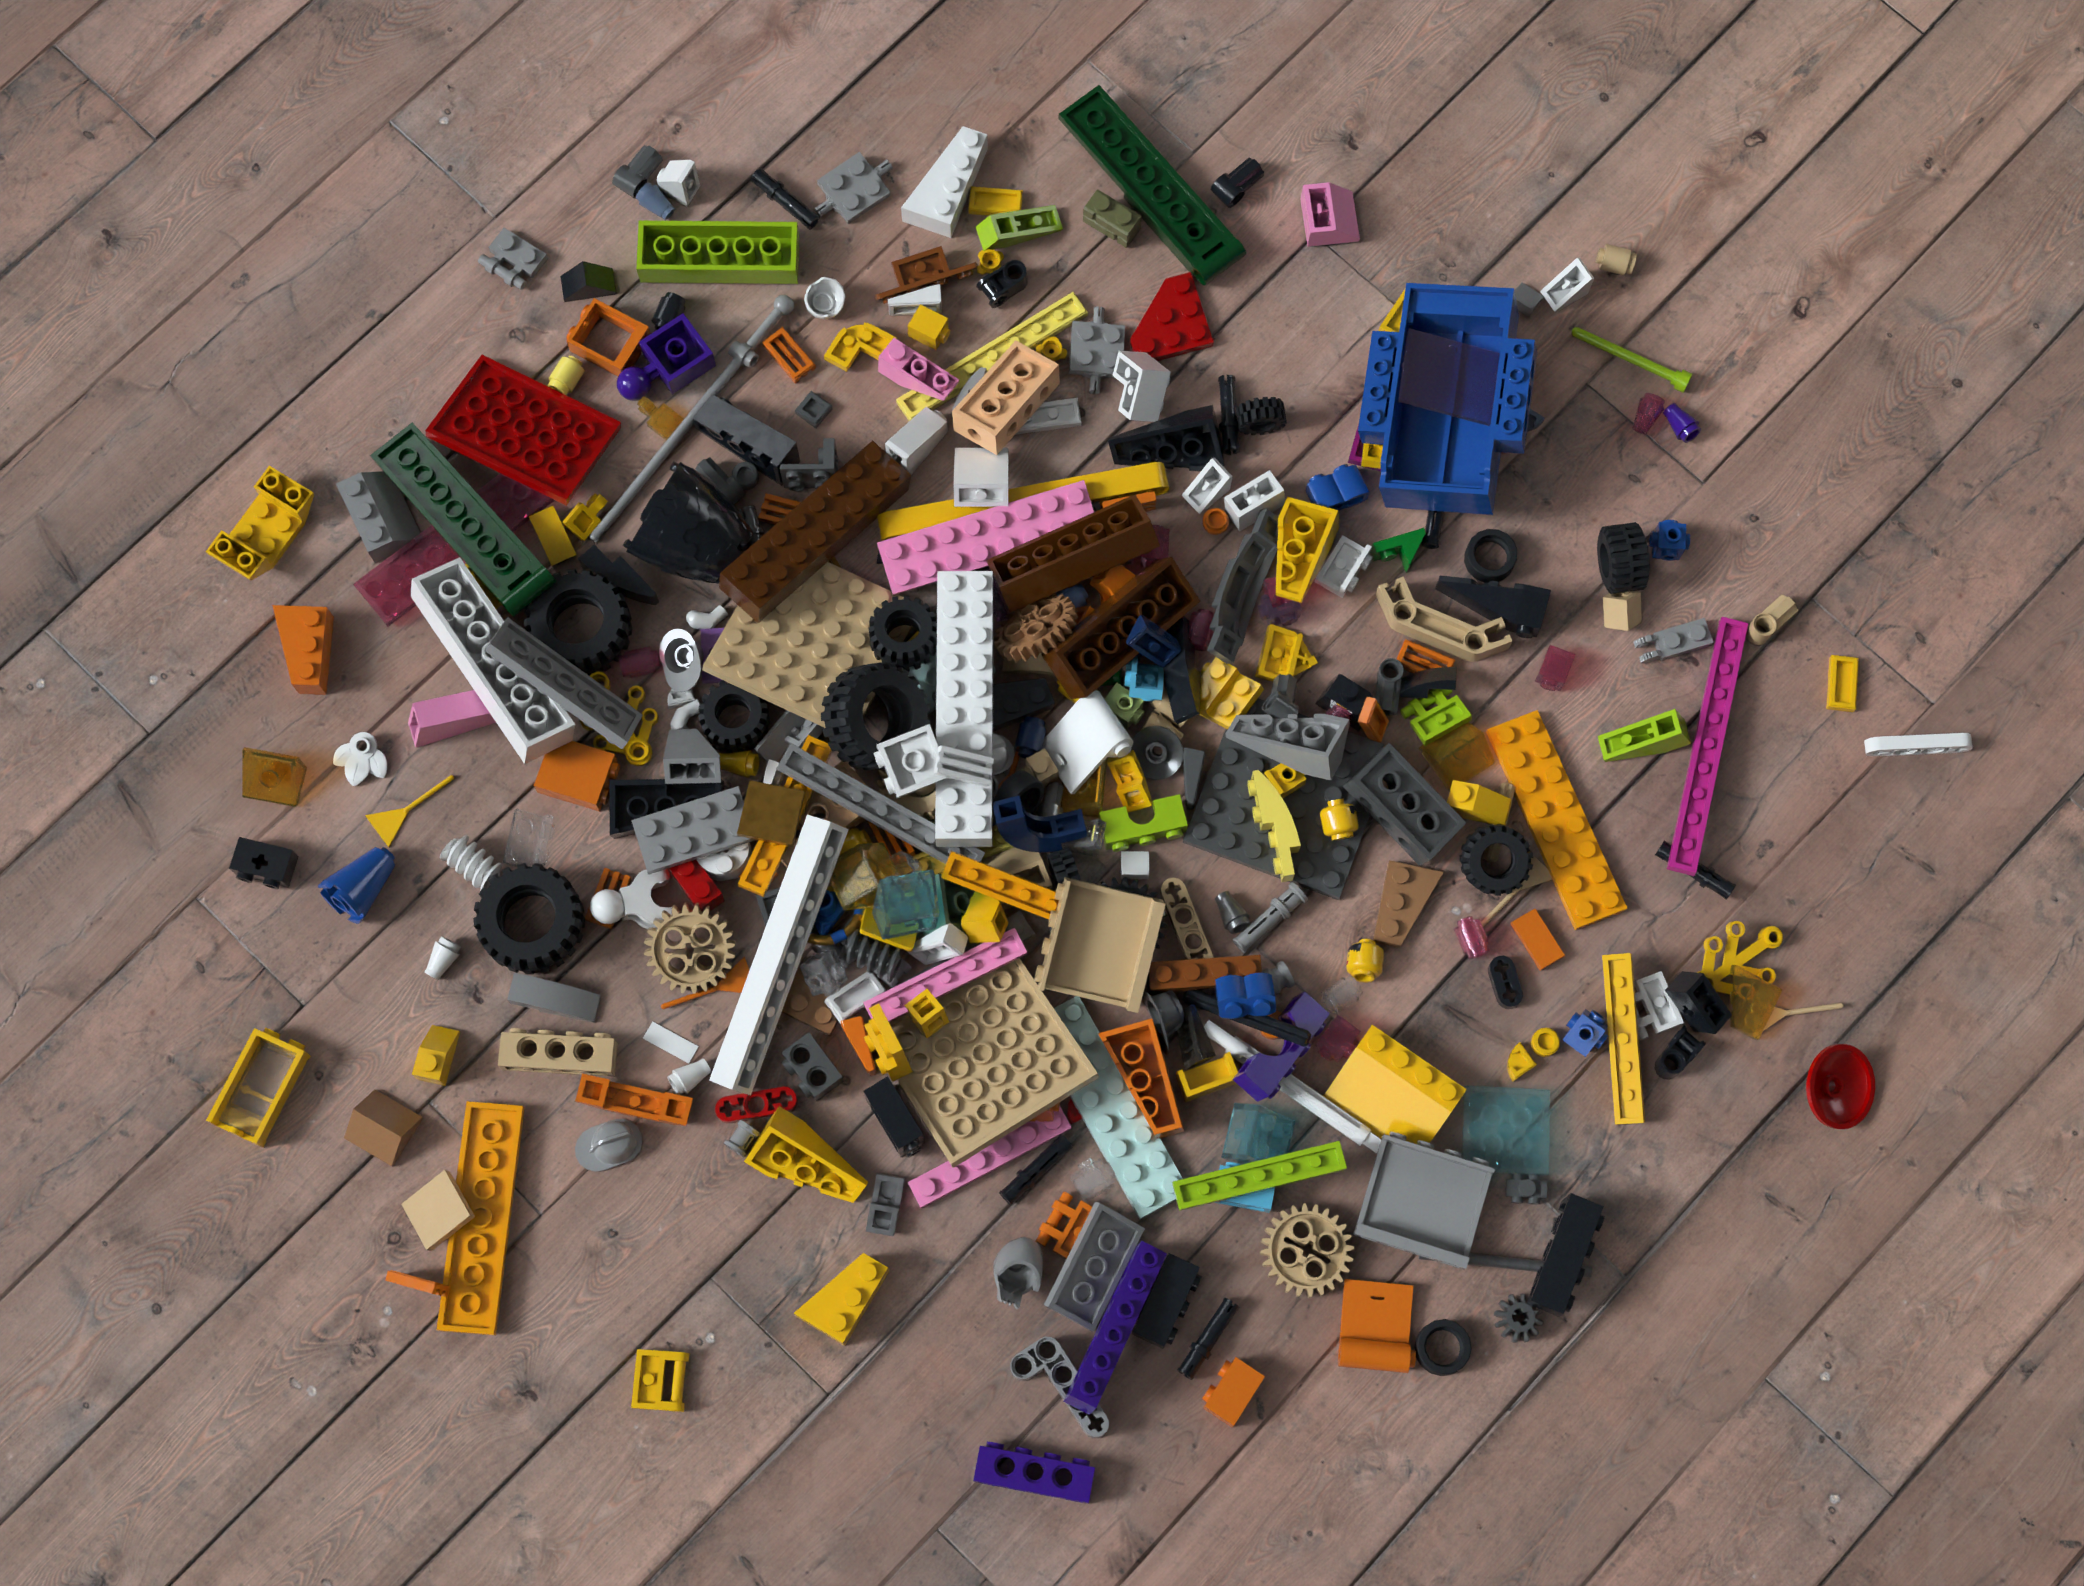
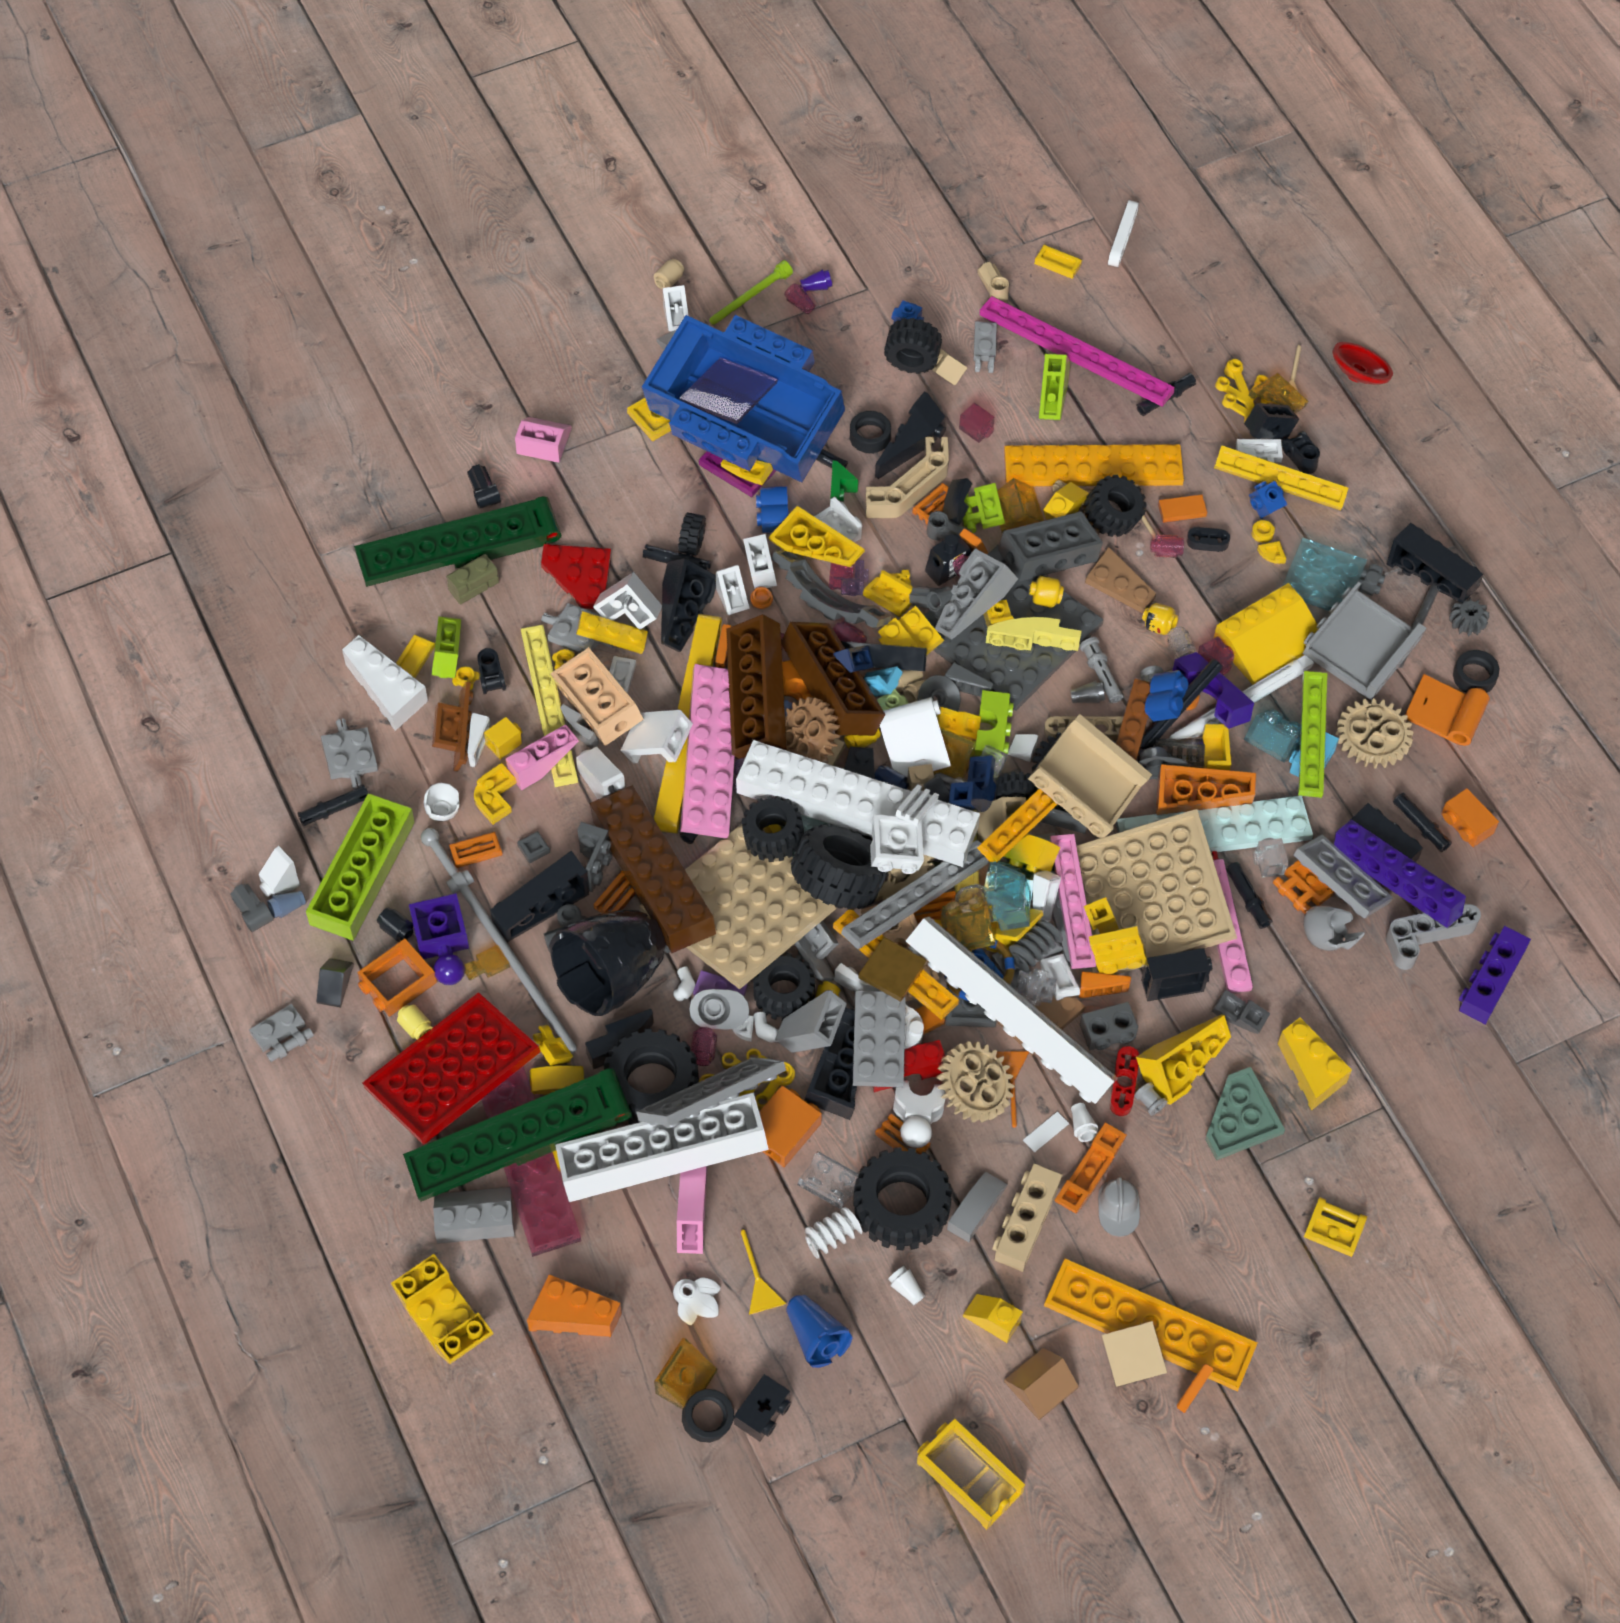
camera: 70 degrees left, 15 degrees down
(222, 797) = (726, 1407): none -> black tyre
(756, 1241) = (1242, 1116): none -> sand green plate
(1100, 383) = (611, 632): none -> yellow plate

